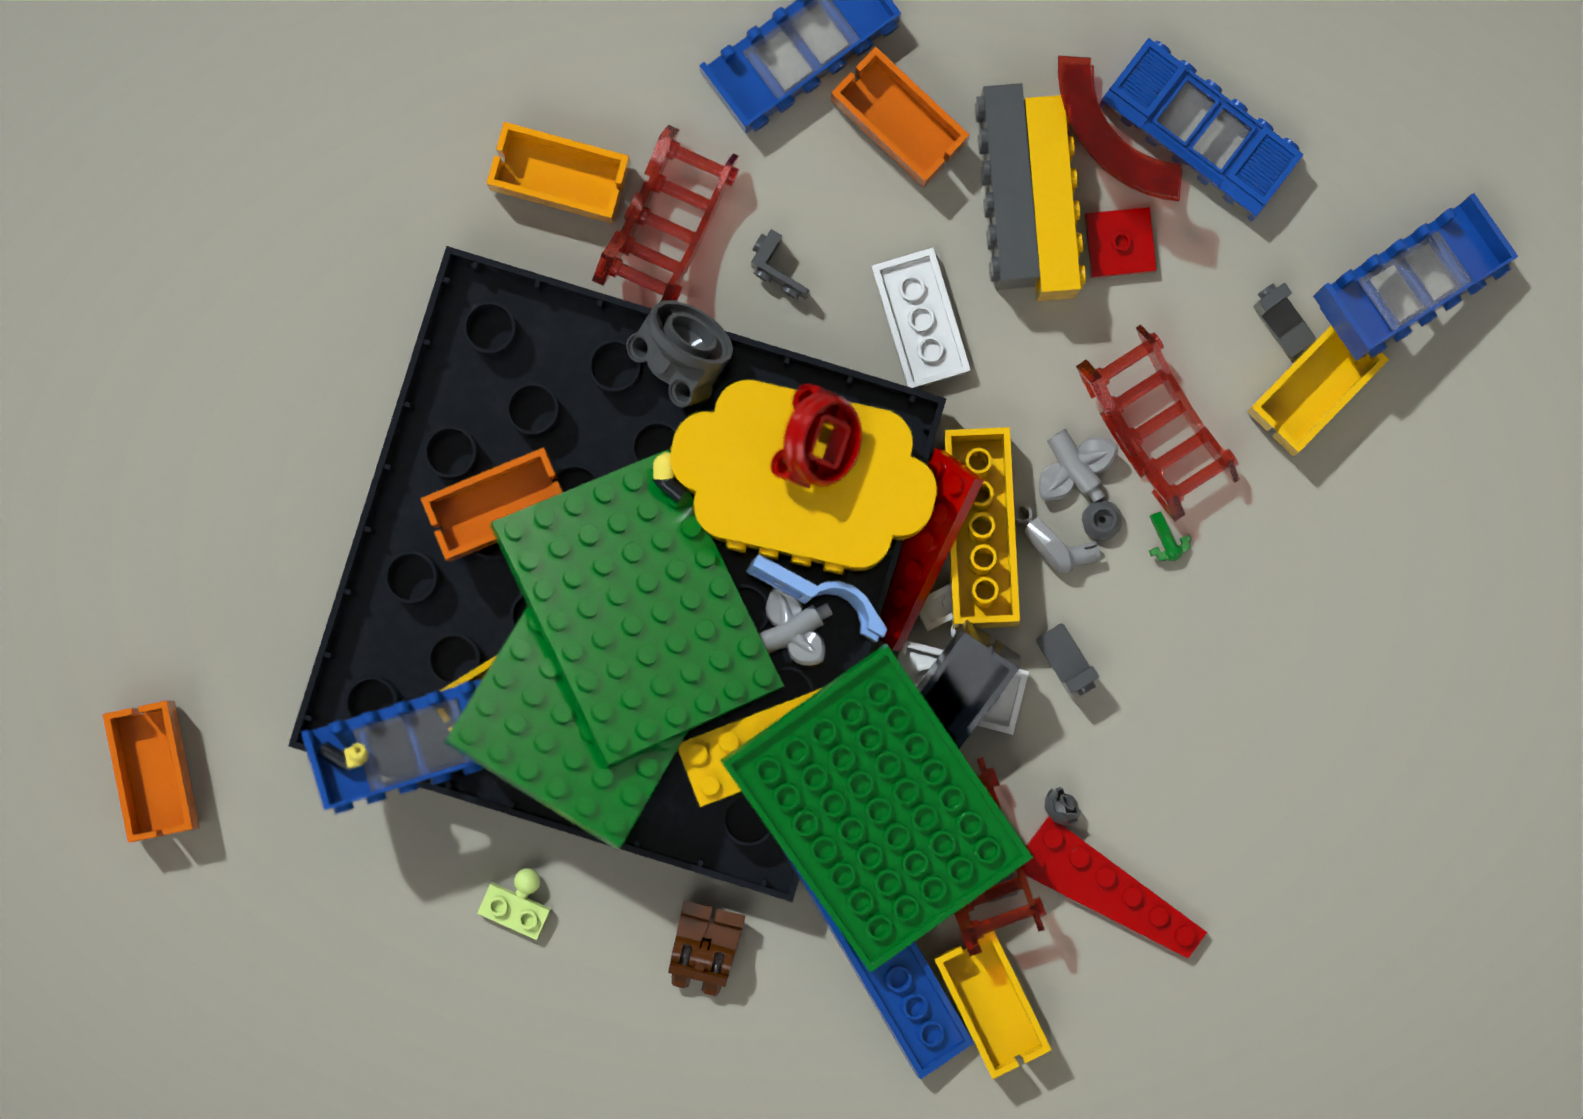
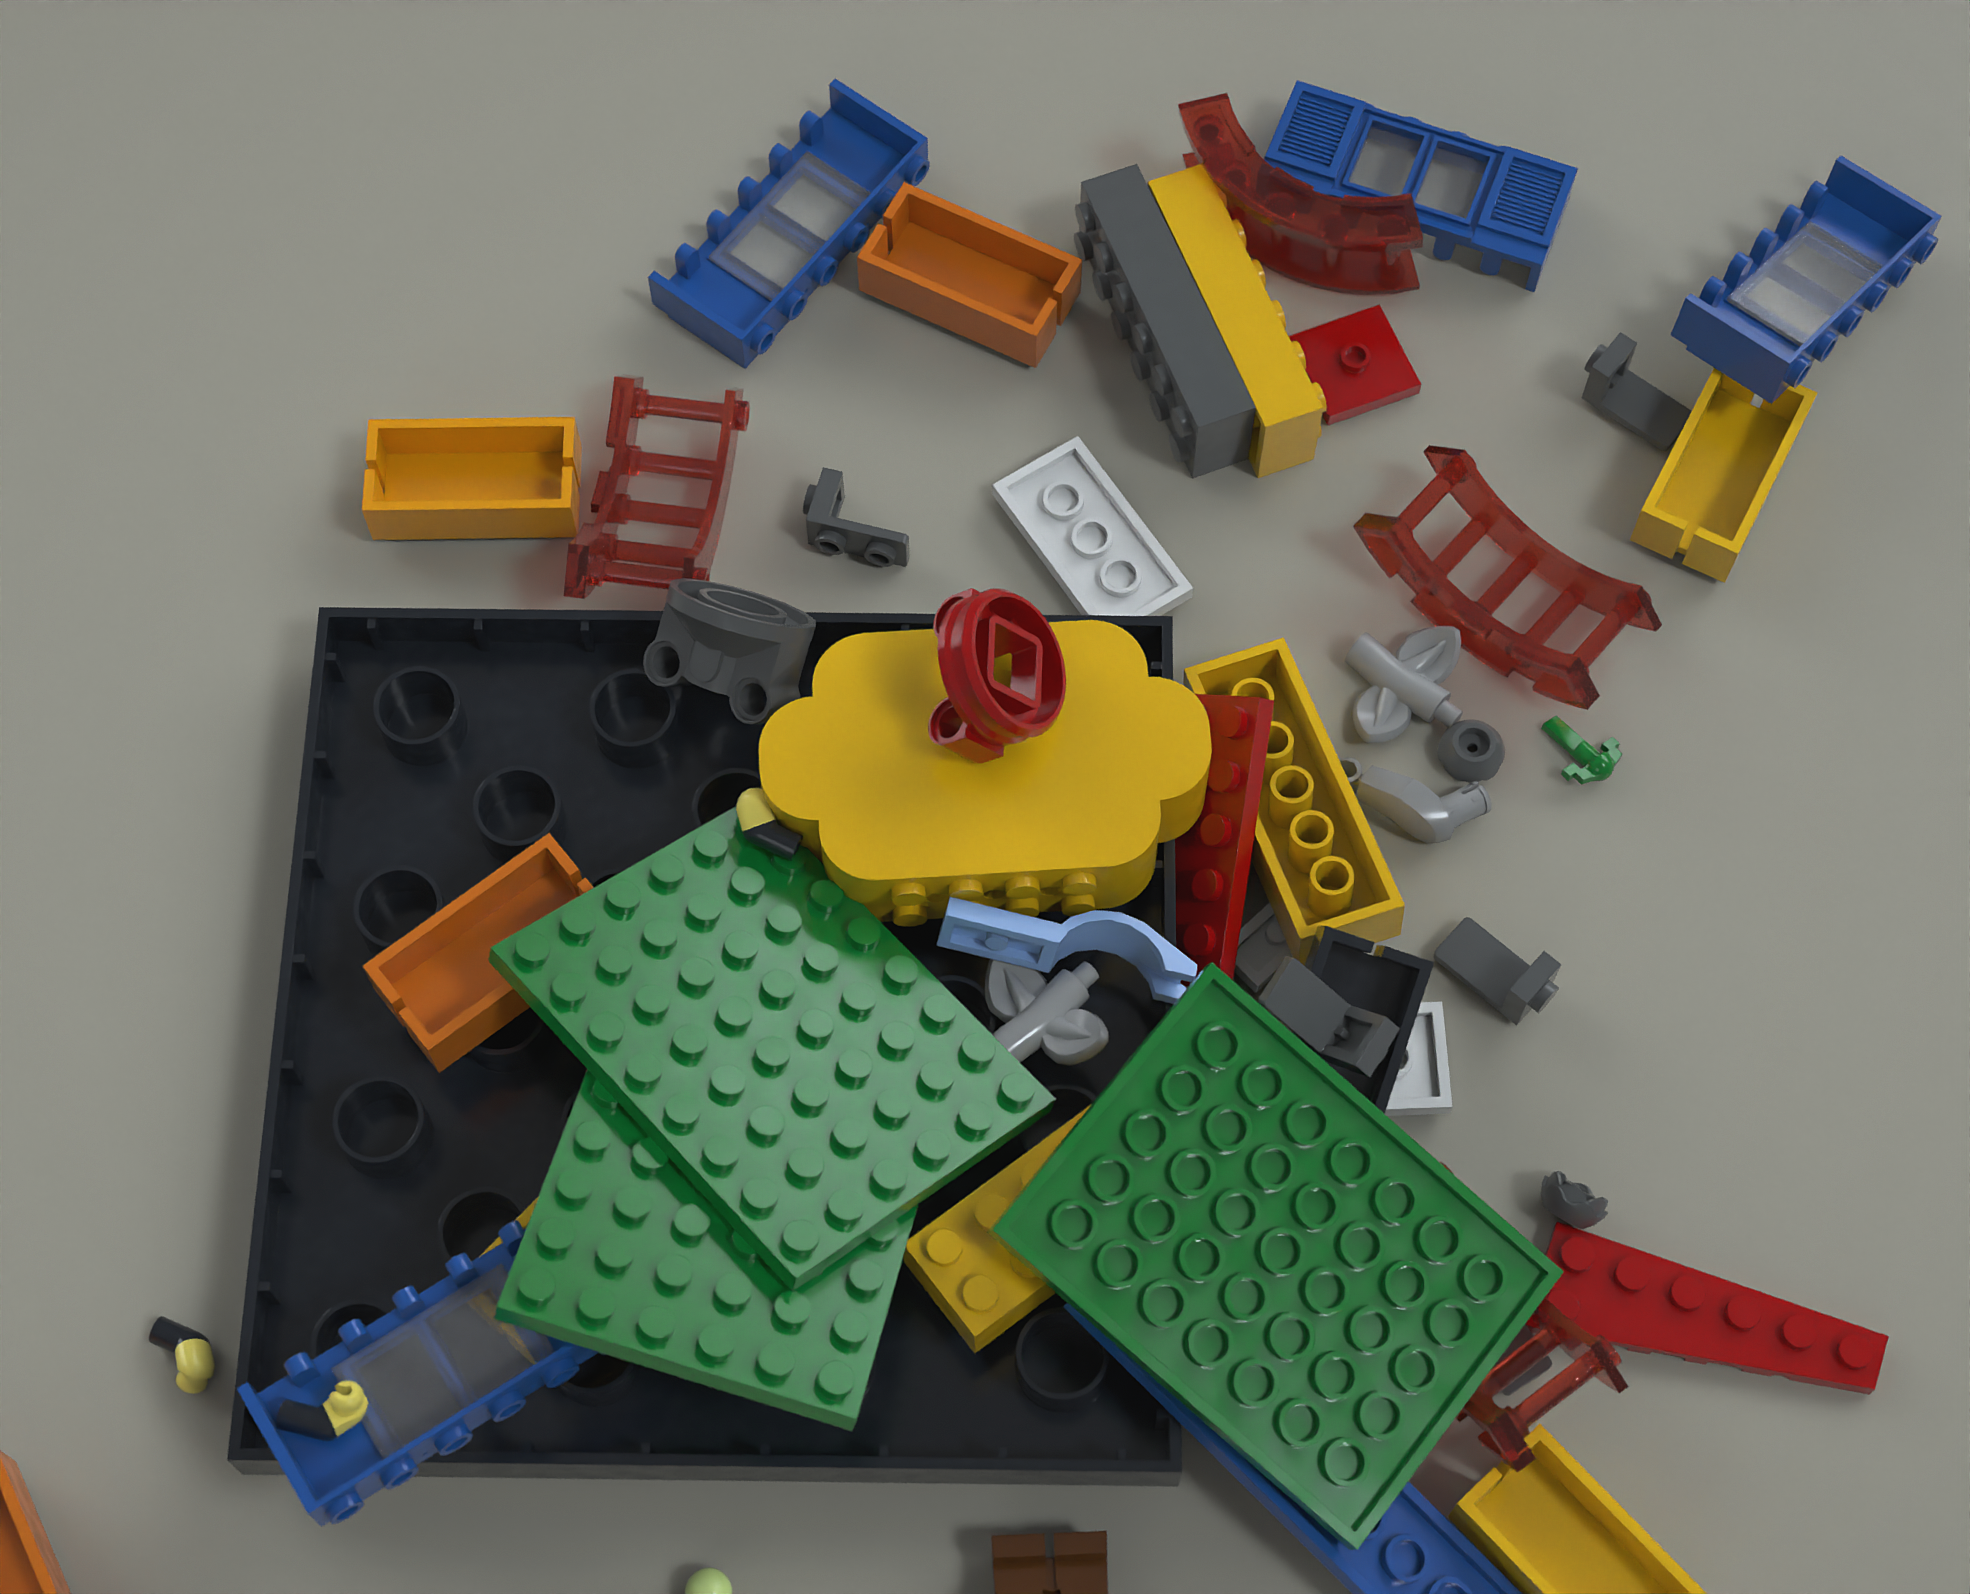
camera: 20 degrees left, 20 degrees down
(280, 667) = (191, 1352): none -> light yellow arm
(948, 686) = (1325, 1020): none -> dark grey bracket

